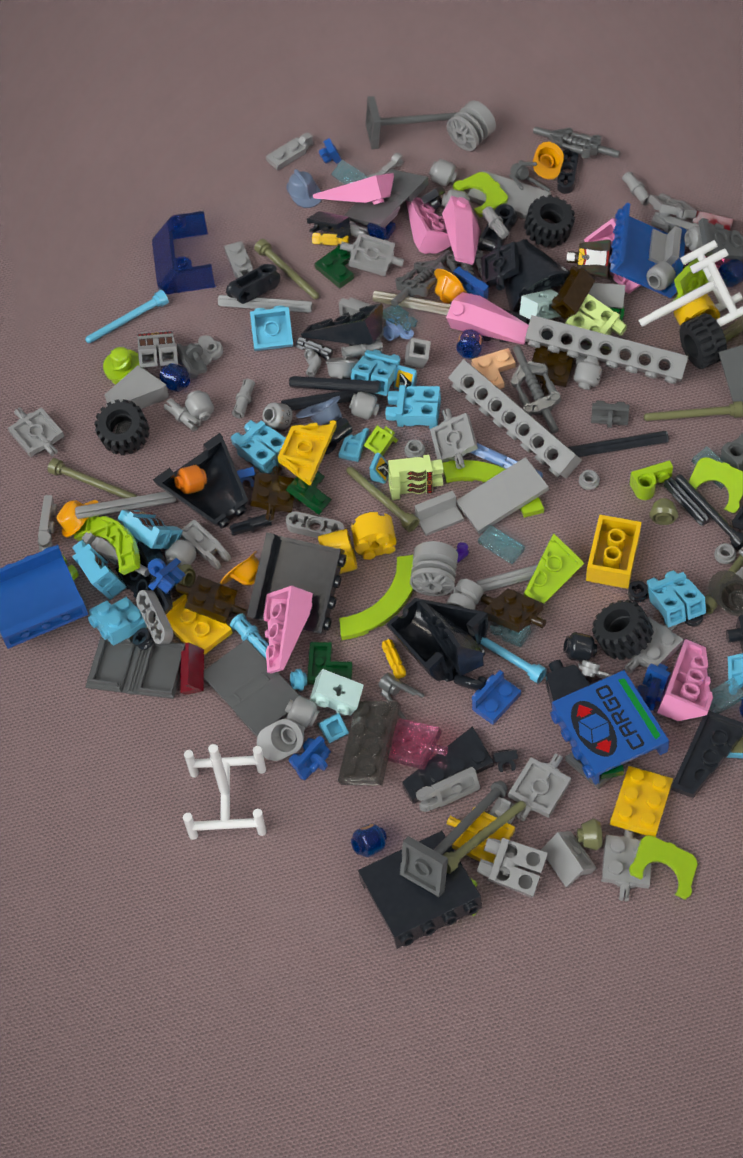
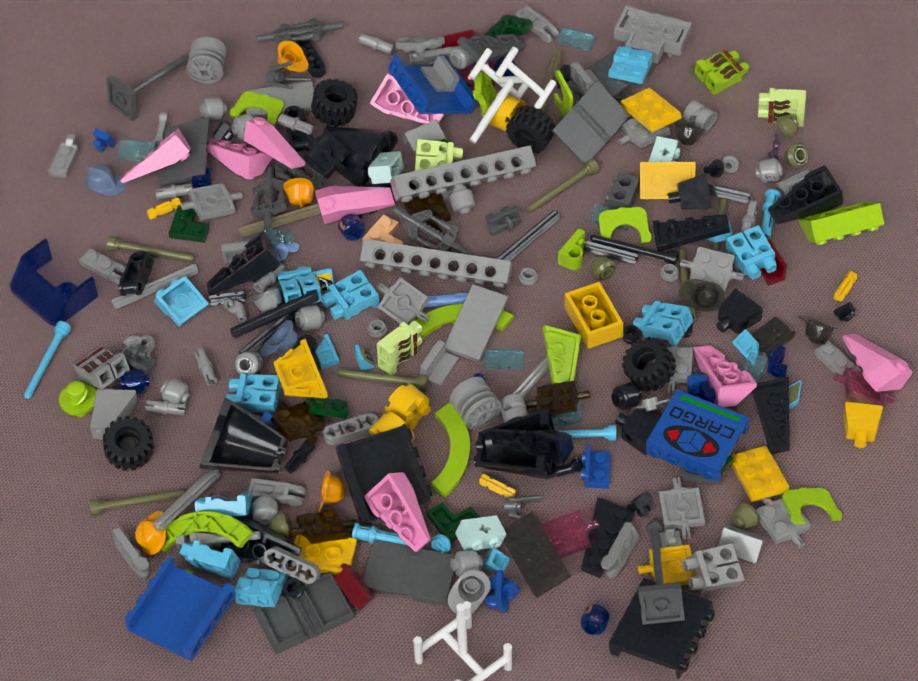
camera: 40 degrees left, 5 degrees down
(36, 432) = (52, 490): light grey plate -> none
(166, 576) = (279, 526): blue hips -> none
(190, 479) = (225, 448): orange head -> none
(330, 223) = (158, 194): black hinge -> none
(380, 440) = (346, 336): lime bracket -> none
(417, 353) = (318, 255): light grey brick -> none
(454, 857) = (677, 553): olive piece -> none
(471, 284) = (319, 180): blue plate -> none
(573, 292) = (405, 144): dark brown brick -> none
(593, 257) = (393, 113): torso -> none
(661, 275) = (457, 98): light grey head -> none

